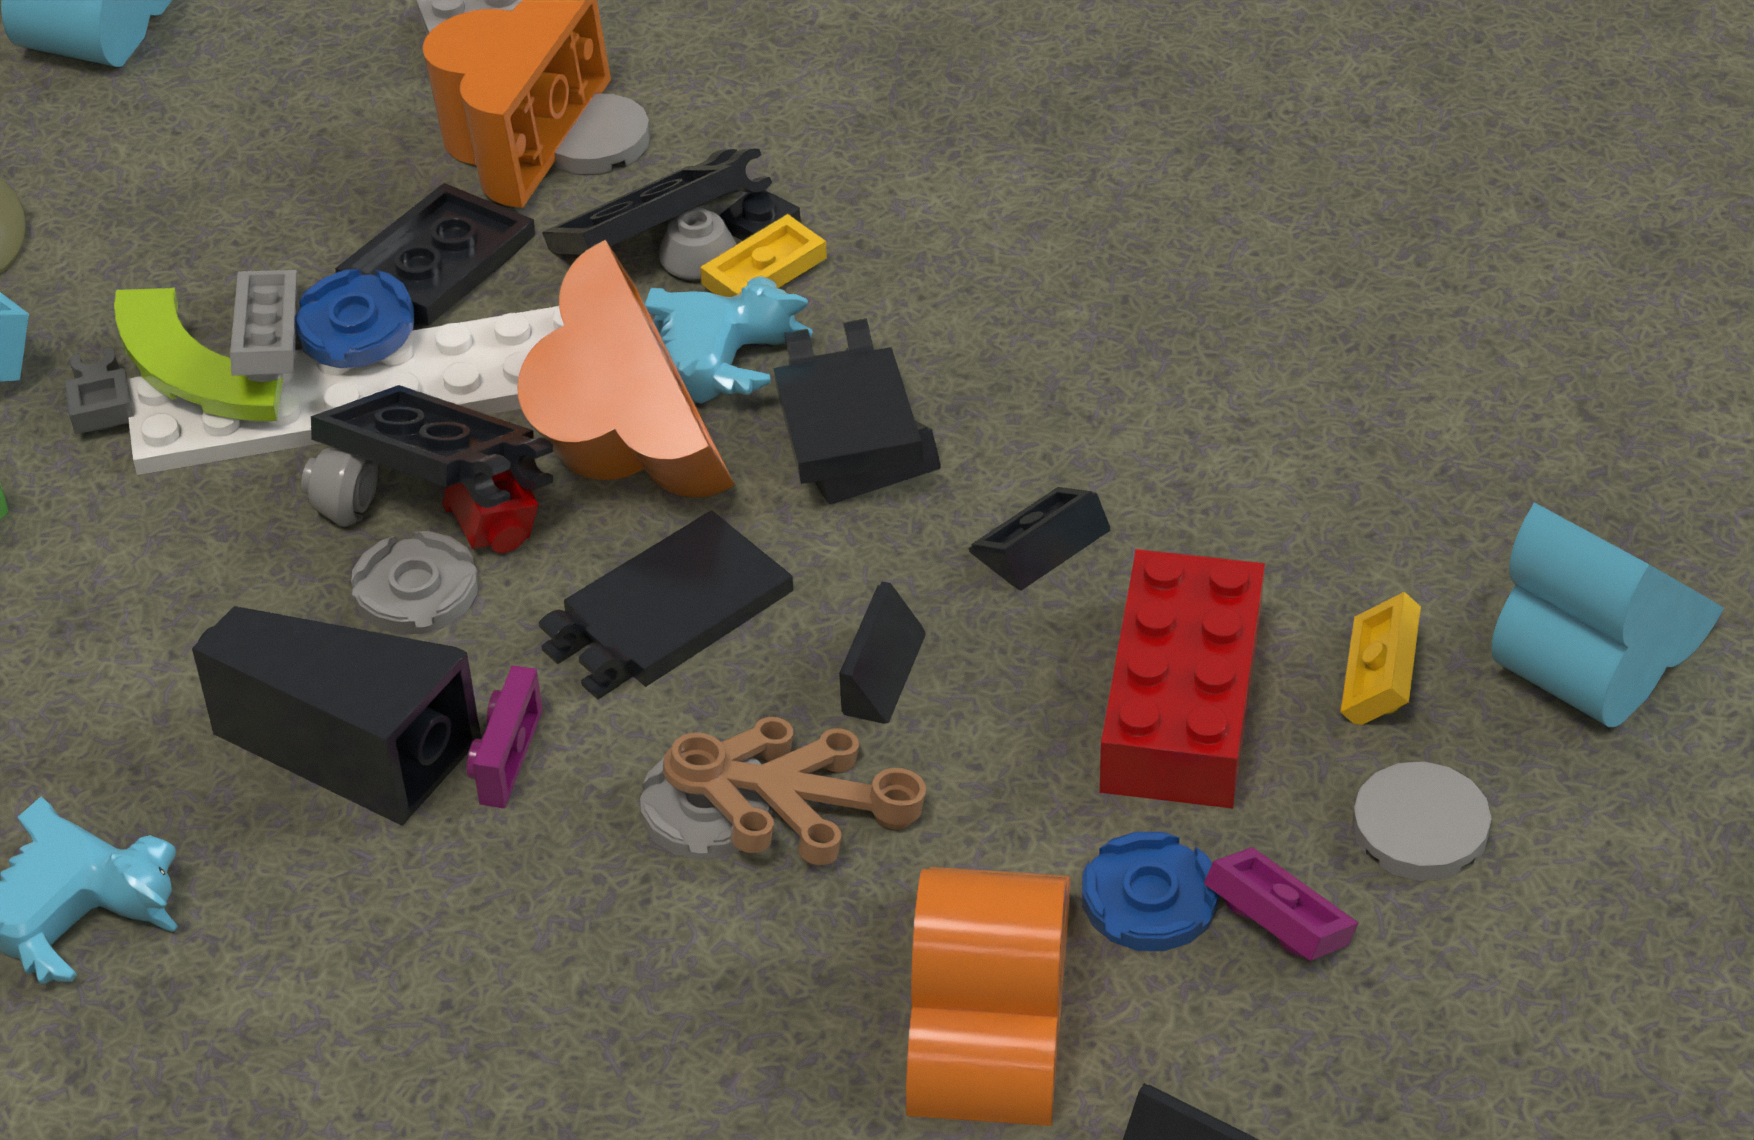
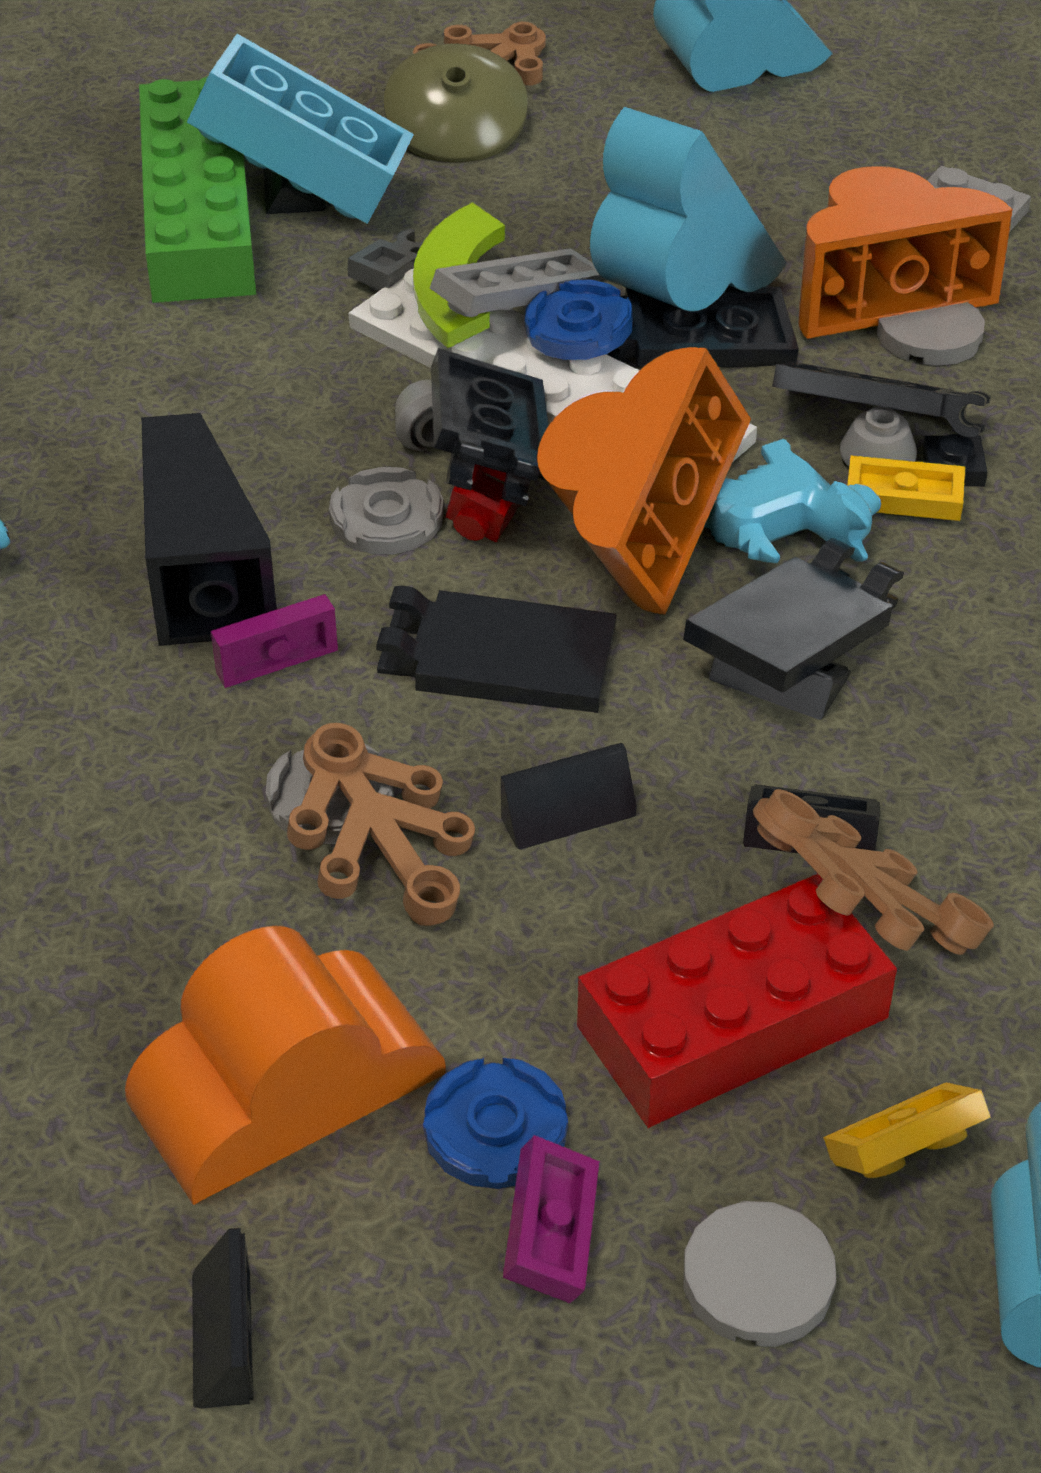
camera: 50 degrees right, 0 degrees up
(343, 173) = (676, 217): none -> medium azure brick
(1223, 522) = (879, 876): none -> medium nougat plant

